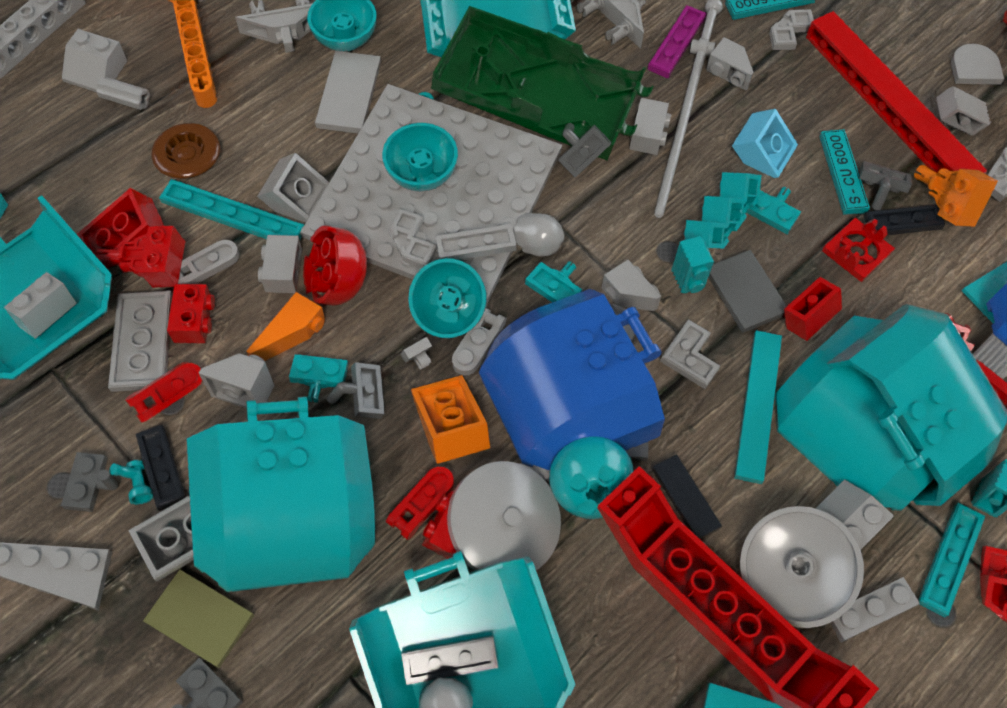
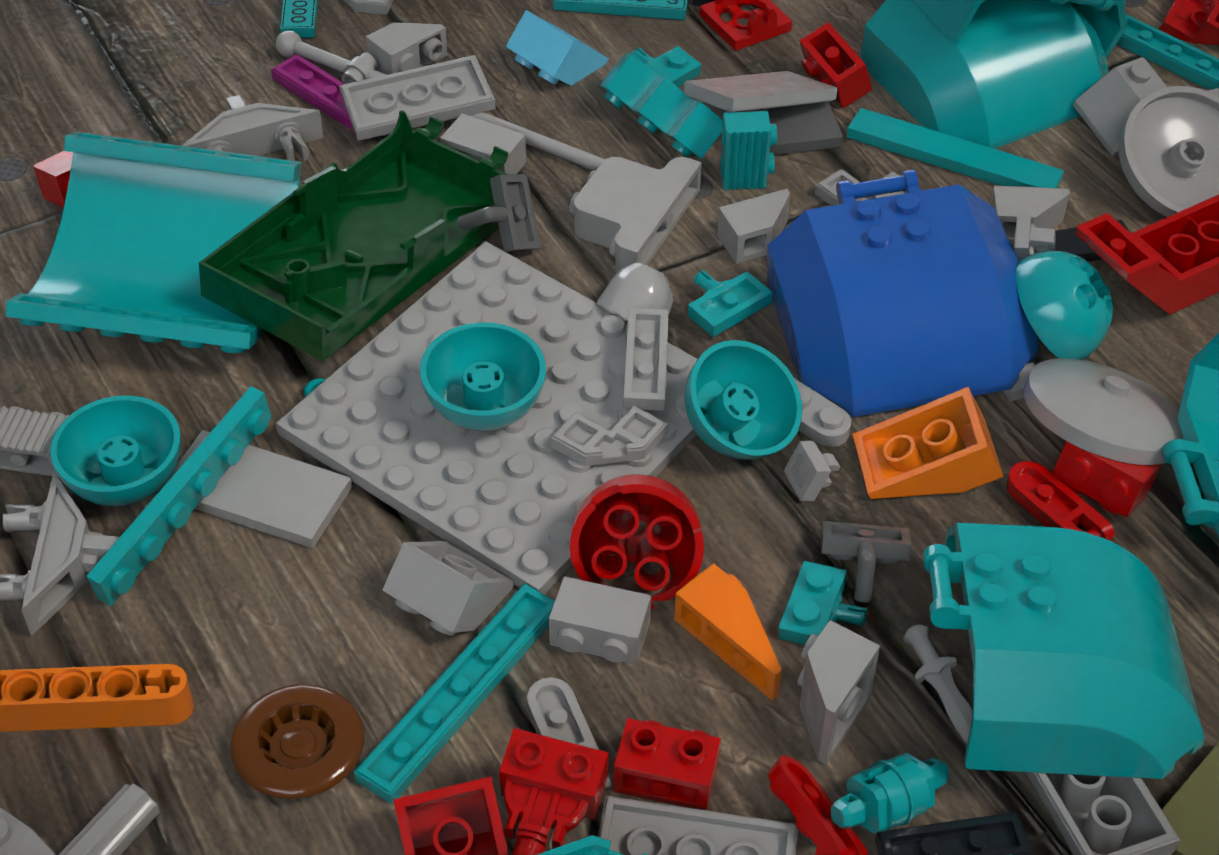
camera: 75 degrees left, 15 degrees down
(175, 419) = (890, 793): none -> teal piece
(325, 57) = (179, 497): none -> teal plate
(622, 218) = (634, 206): none -> light grey brick
(640, 449) = (1032, 239): none -> light grey hinge
(683, 80) = (432, 90): none -> light grey tile
(701, 456) = (1044, 204): none -> light grey slope
(754, 262) = (759, 91): none -> light grey tile

